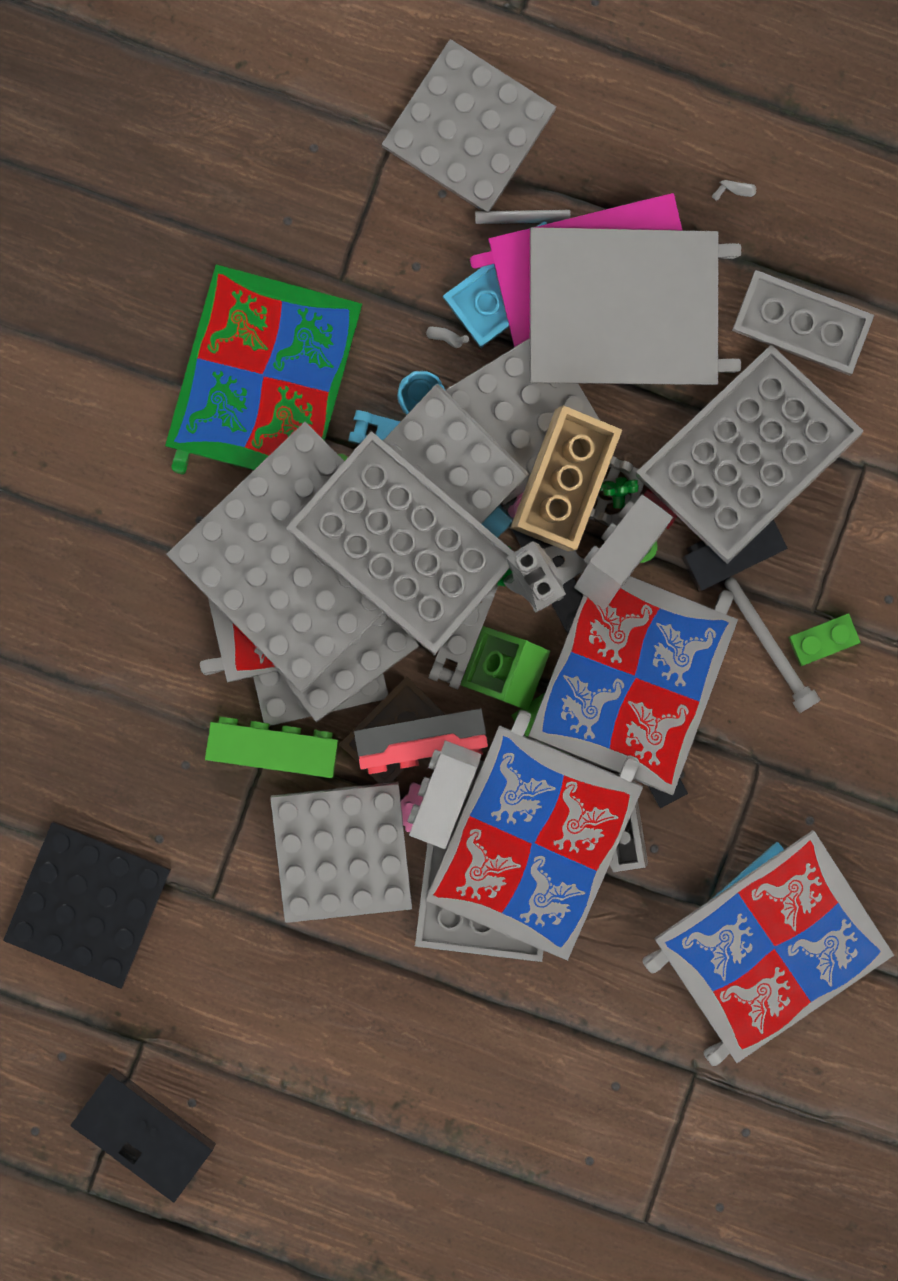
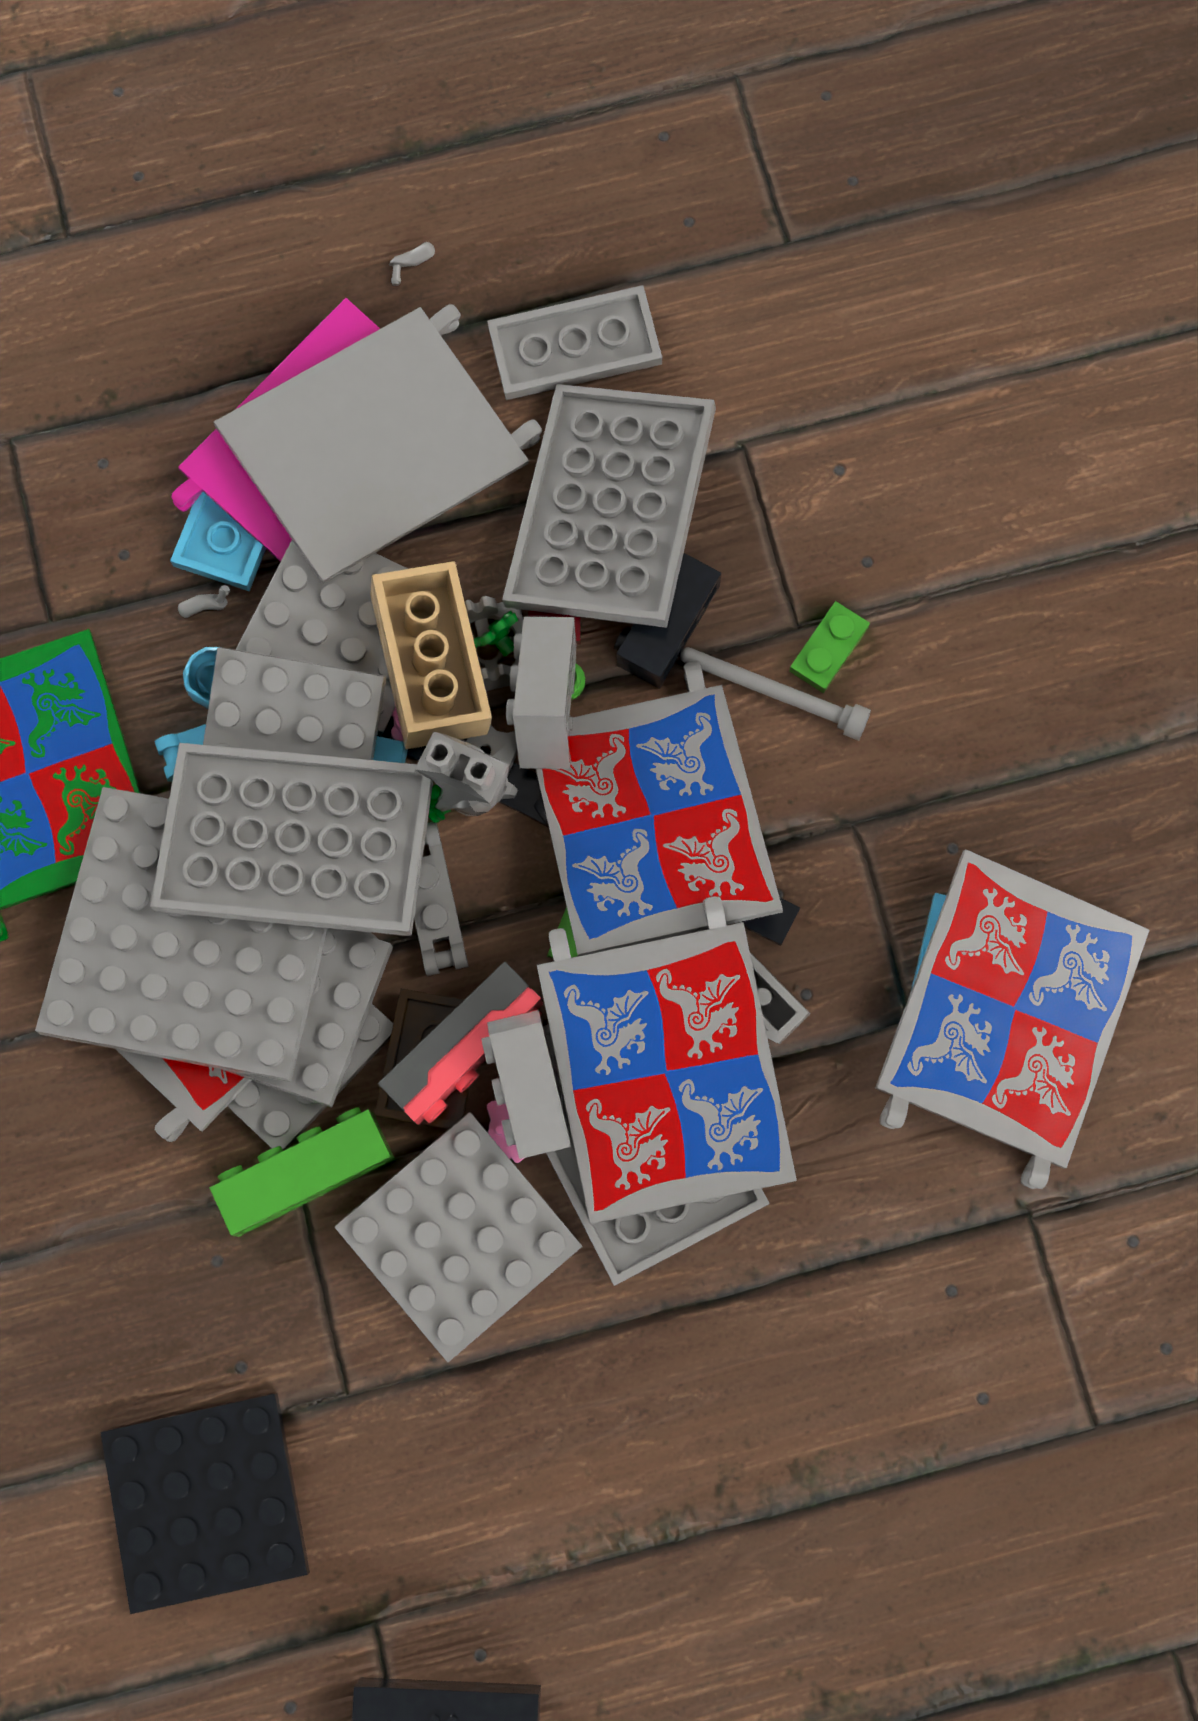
camera: 25 degrees left, 10 degrees down
(468, 126) = (85, 378): light grey plate -> none
(505, 667) = (504, 905): bright green slope -> none
(524, 216) = (193, 436): light grey bar -> none

